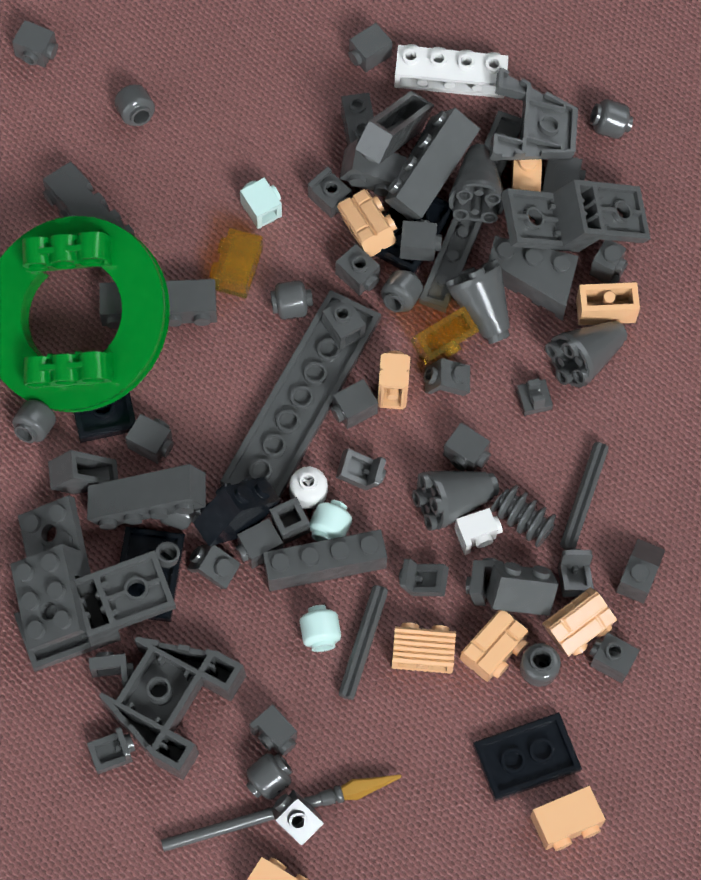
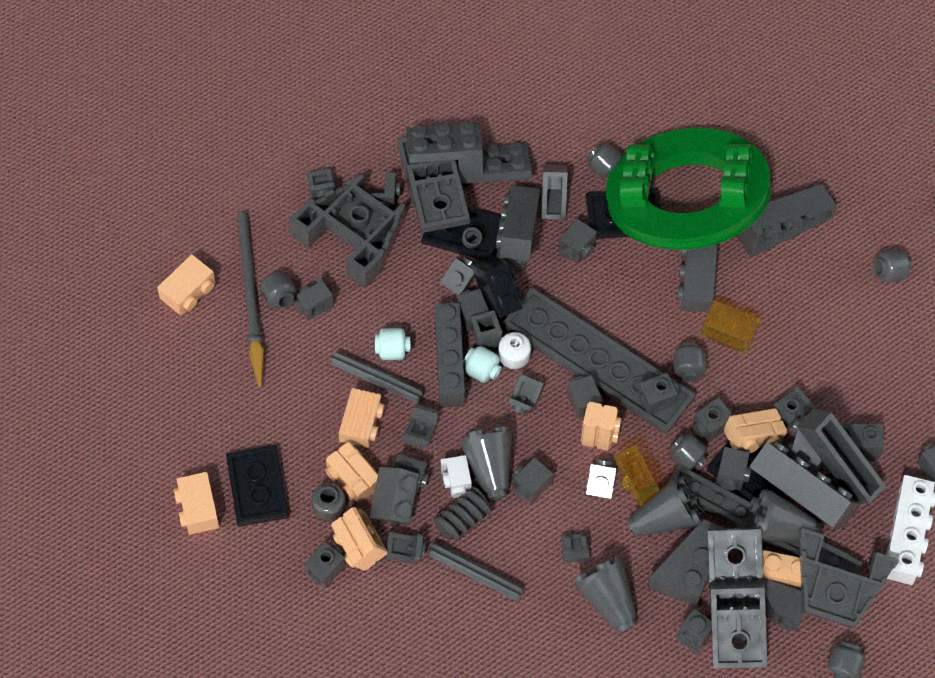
camera: 100 degrees right, 5 degrees down
(261, 202) = (787, 352): light aqua brick -> none
(297, 816) = (240, 302): brick -> none
(607, 303) = (652, 618): light nougat brick -> none
(640, 571) = (399, 602): dark grey slope -> none

